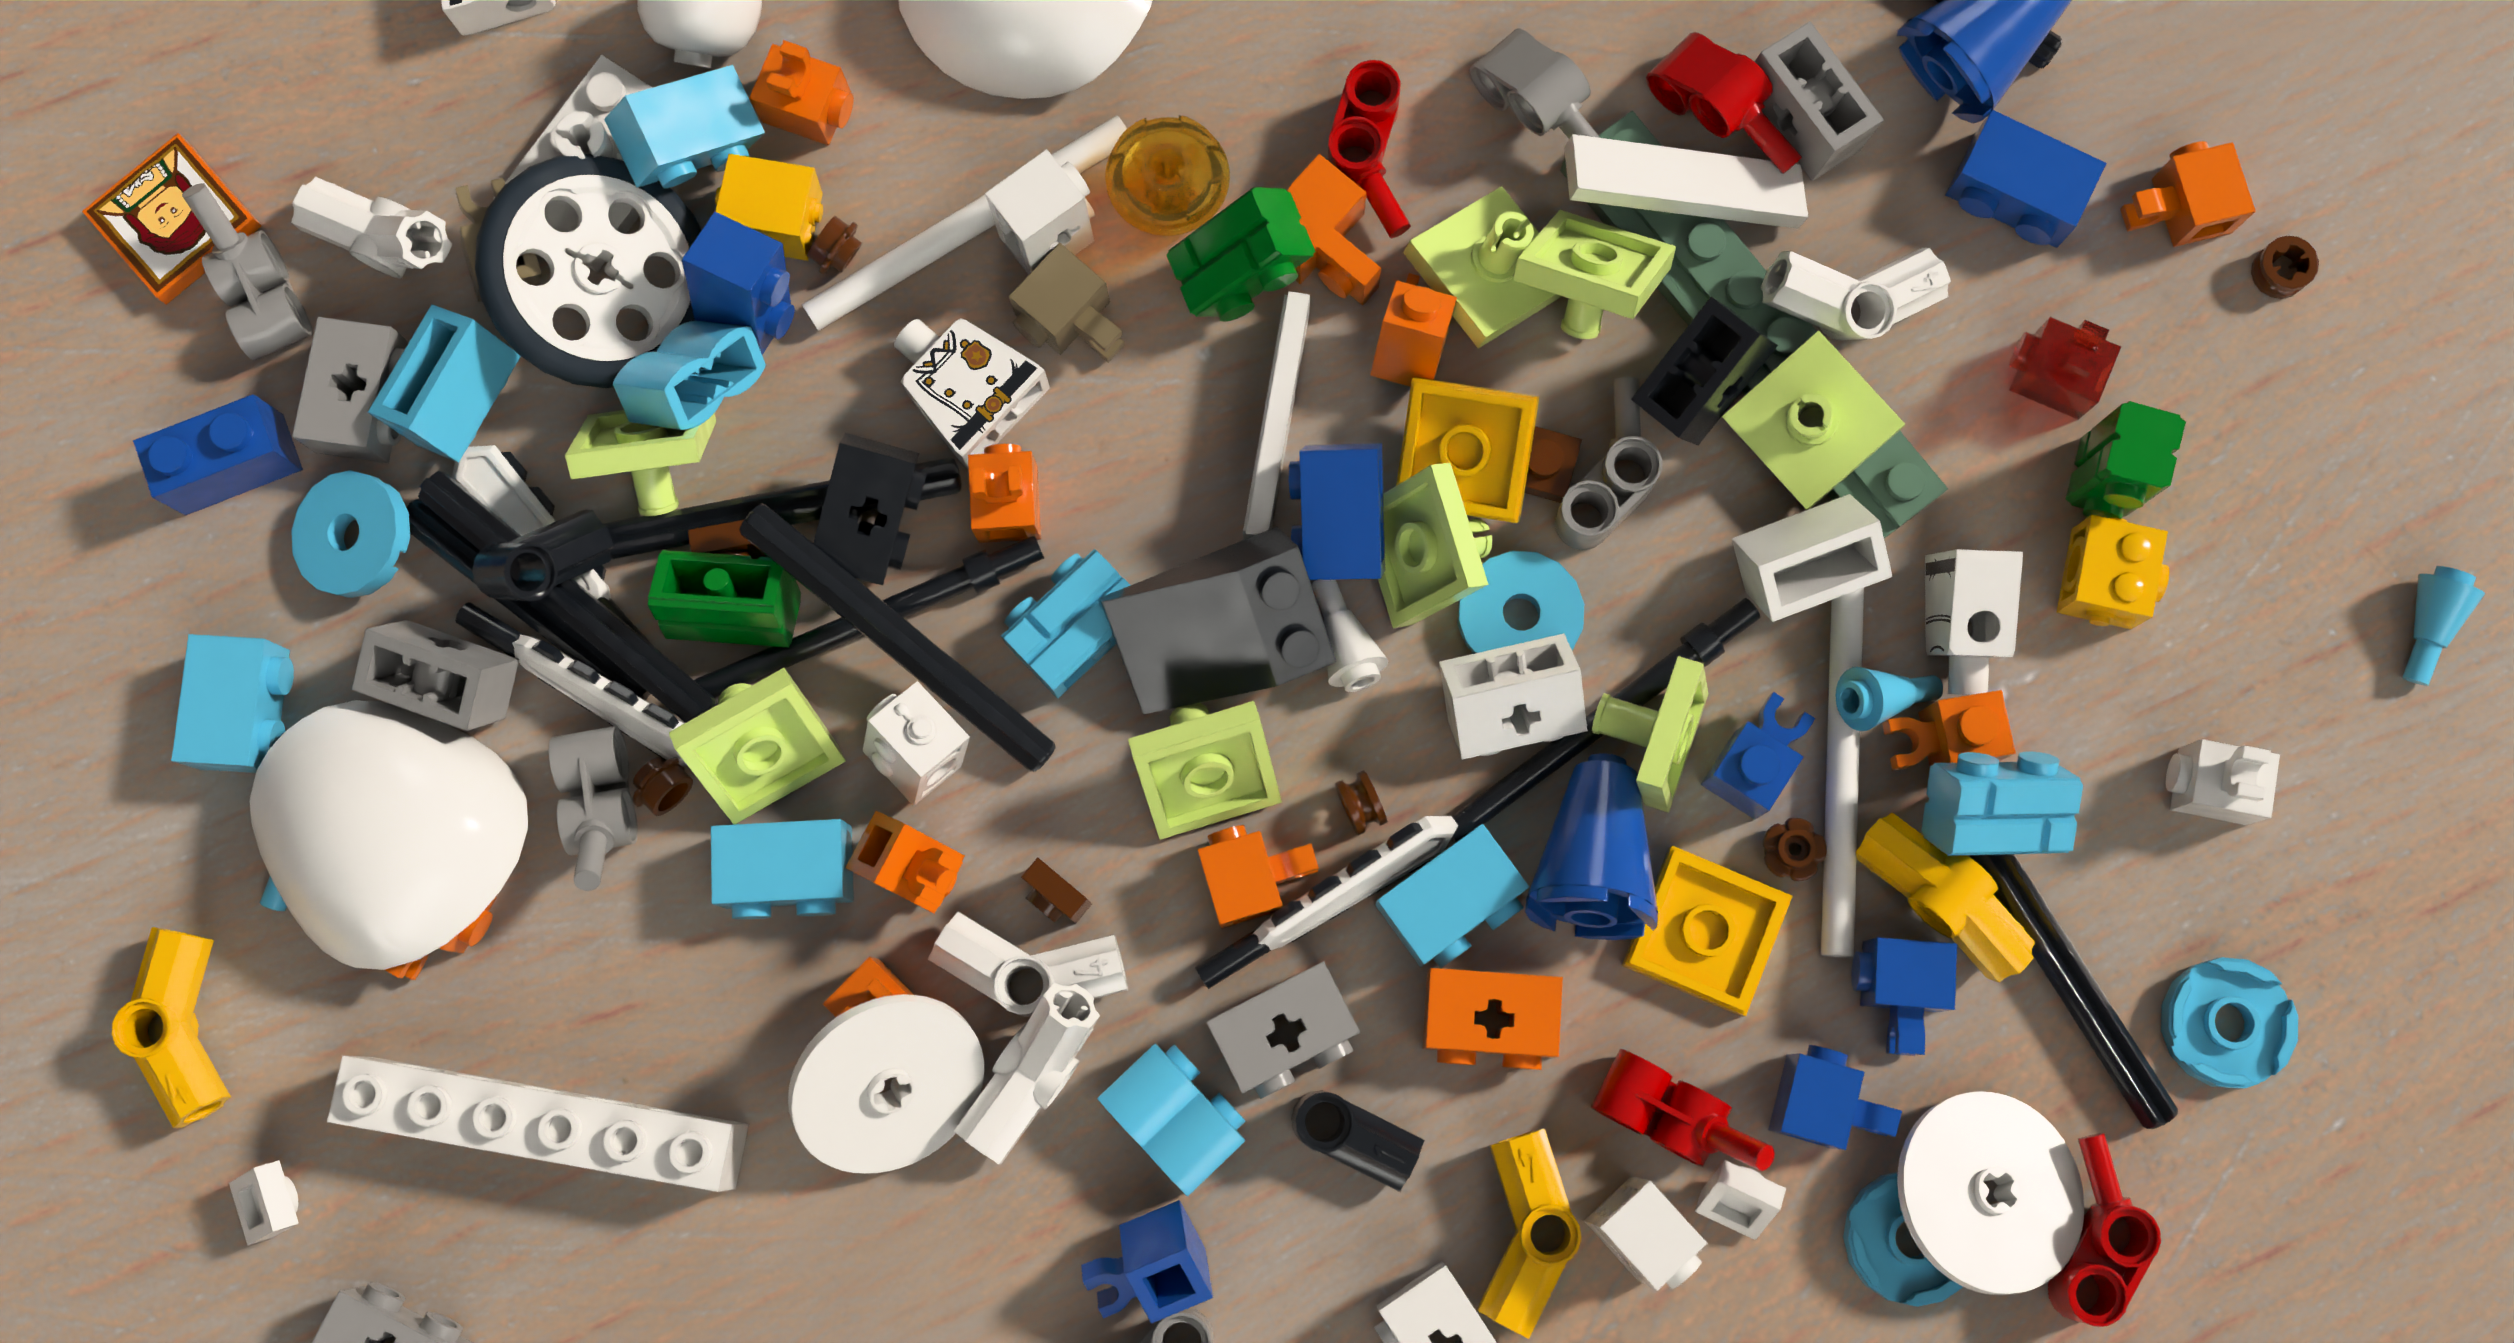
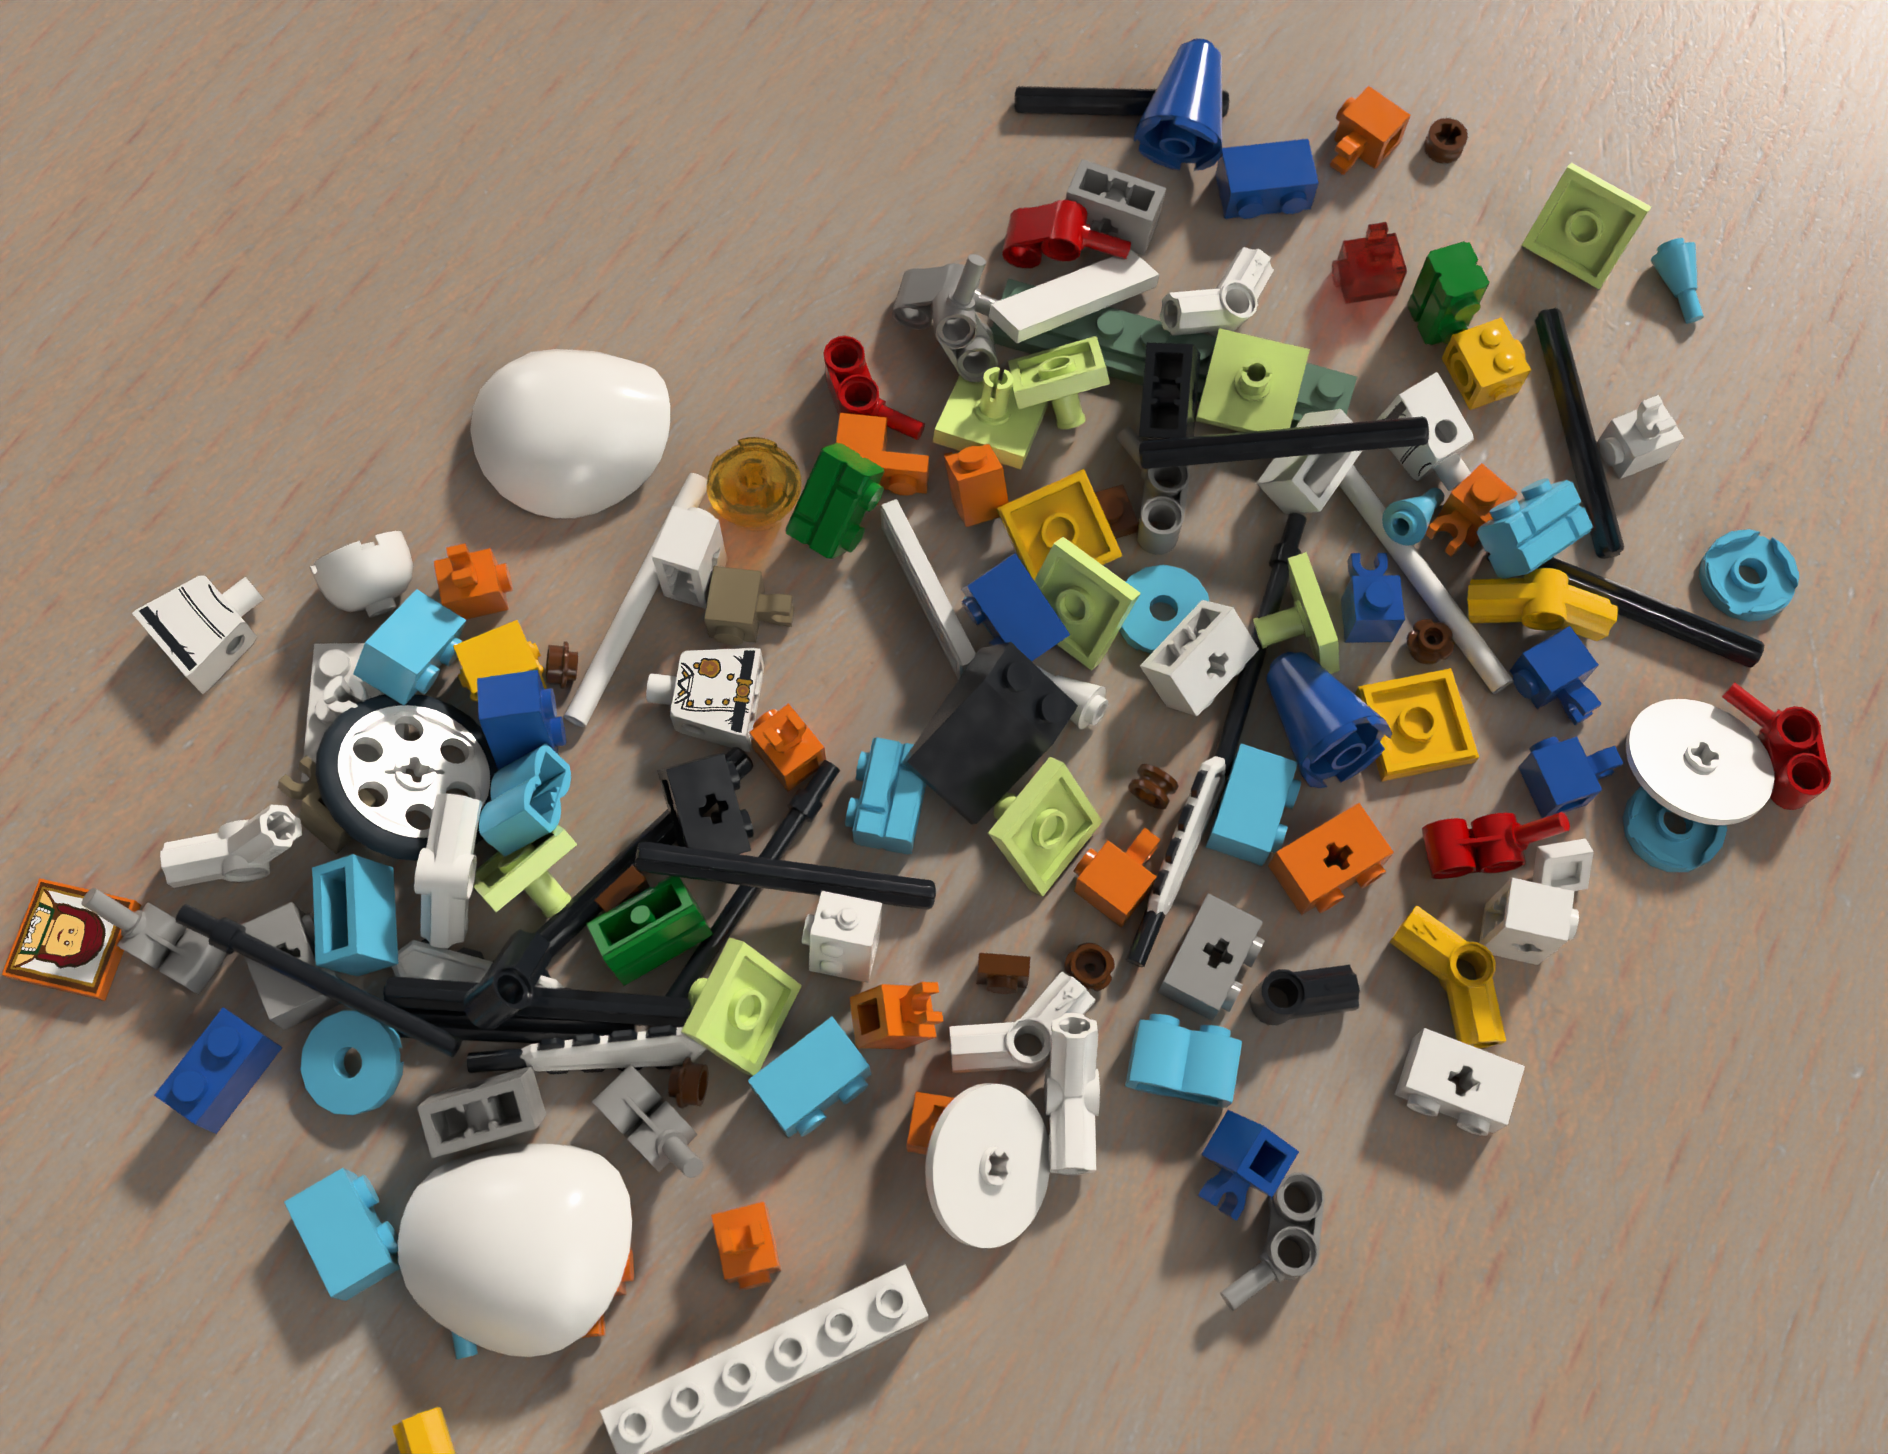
camera: 40 degrees left, 10 degrees down
(306, 326) = (231, 937): none -> black bar
(558, 396) = (448, 869): none -> white piece
(602, 990) = (746, 1245): none -> orange brick
(1142, 934) = (1090, 954): none -> reddish brown plate
(1514, 143) = (966, 333): none -> light grey beam
(1783, 519) = (1284, 442): none -> black axle
(2161, 724) = (1579, 433): none -> black axle
(2362, 485) = (1585, 225): none -> yellowish green tile

